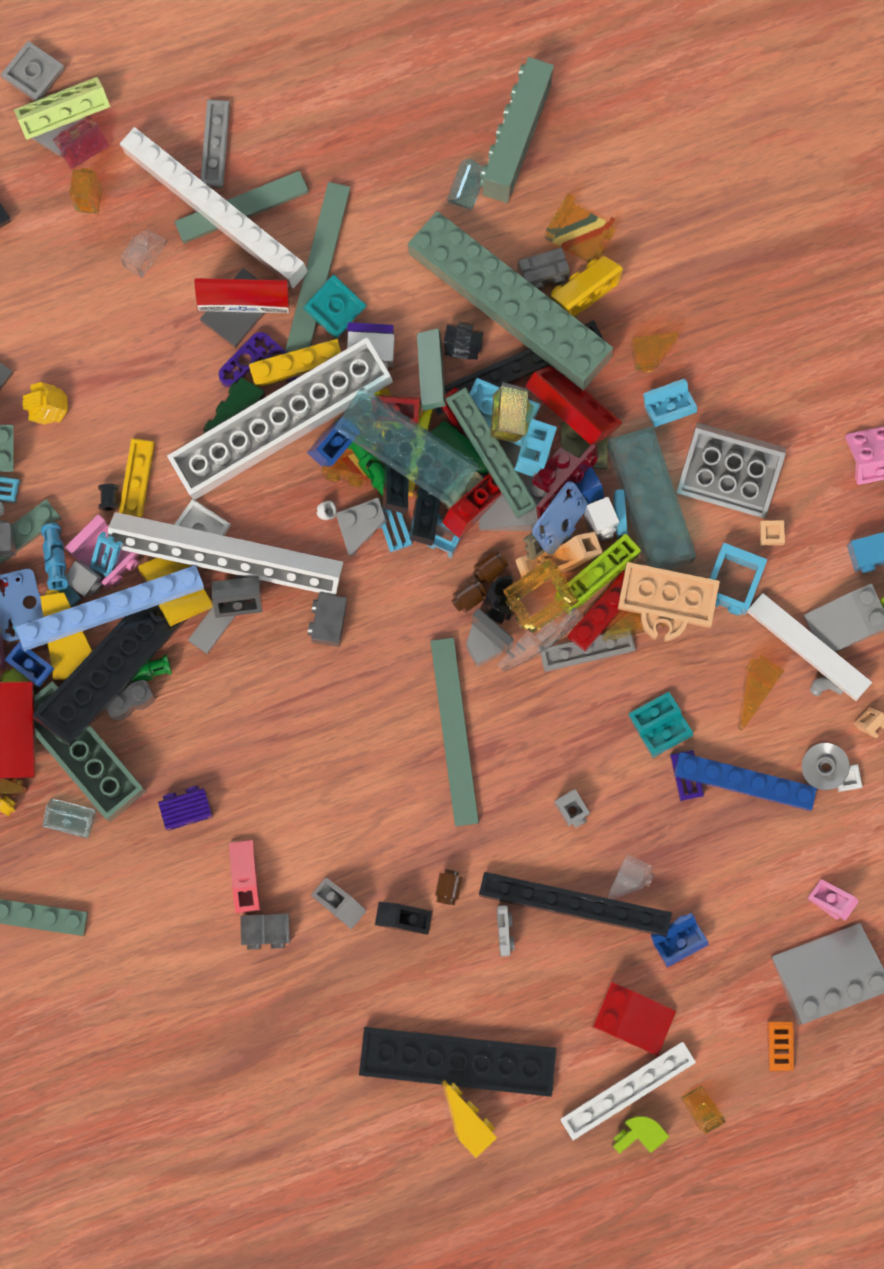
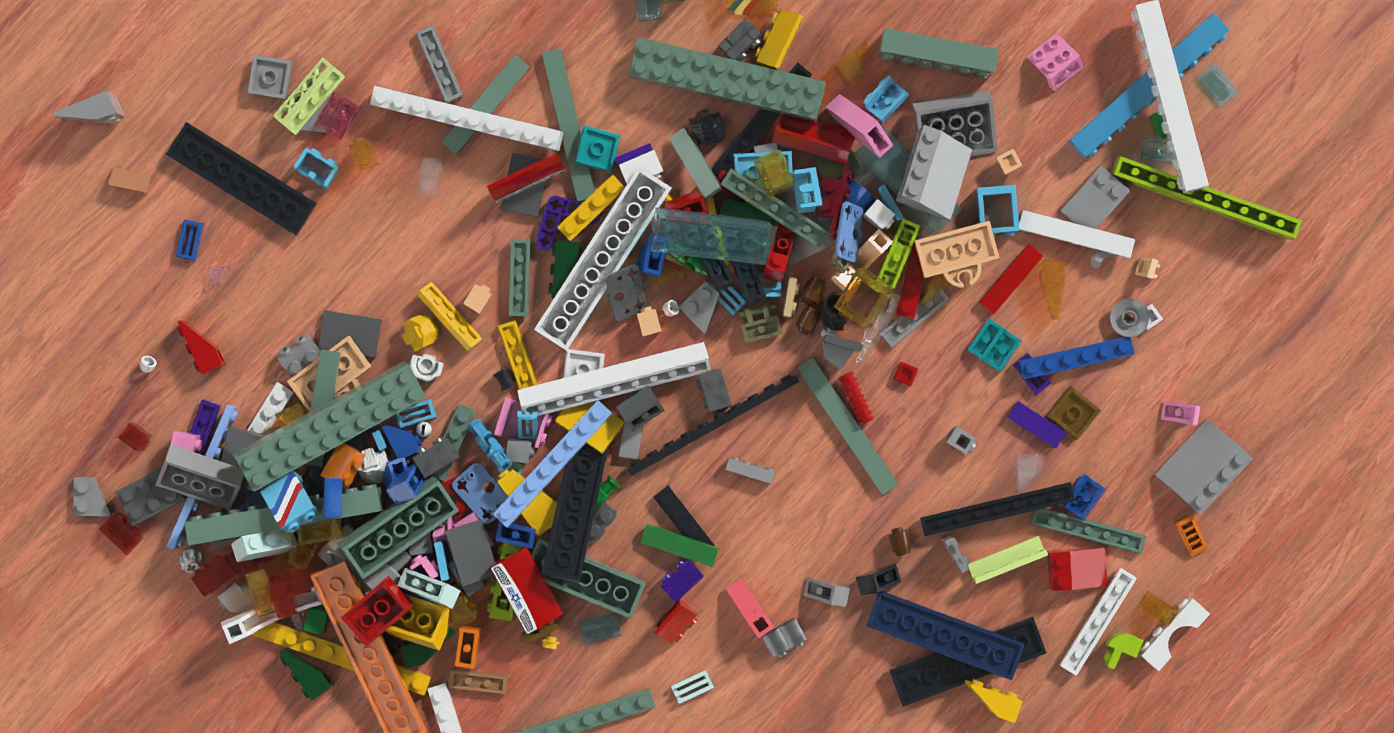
camera: 20 degrees left, 10 degrees up
(29, 184) = (317, 168): none -> medium azure window
(31, 443) = (426, 367): none -> white hair
(85, 402) = (449, 316): none -> yellow plate
(115, 934) = (707, 680): none -> light aqua tile
(126, 398) = (478, 298): none -> light nougat brick
(153, 848) = (675, 621): none -> red slope
(181, 399) = (519, 277): none -> sand green plate
(203, 769) = (680, 545): none -> green tile
(222, 746) = (680, 516): none -> black plate
(292, 467) = (630, 289): none -> dark grey axle
(295, 512) = (648, 321): none -> light nougat brick
(297, 656) = (720, 419): none -> black plate
(326, 730) = (744, 468): none -> light grey piece
(411, 579) = (762, 328): none -> olive plate
(447, 1017) = (945, 635): none -> dark blue plate
(466, 554) = (789, 304): none -> tan plate
(479, 705) = (856, 398): none -> red piece
(547, 707) = (905, 374): none -> red tile
(558, 968) = (1006, 559): none -> yellowish green fence
(628, 412) = (860, 125): none -> bright pink slope
(665, 834) = (1036, 424): none -> dark purple tile
(666, 981) = (1088, 530): none -> sand green tile
(678, 1158) = (1156, 650): none -> white arch
(684, 501) = (934, 173): none -> slope
(713, 661) = (1011, 279): none -> red tile
(713, 842) = (1073, 412): none -> pearl gold tile
(749, 380) = (938, 53): none -> sand green brick

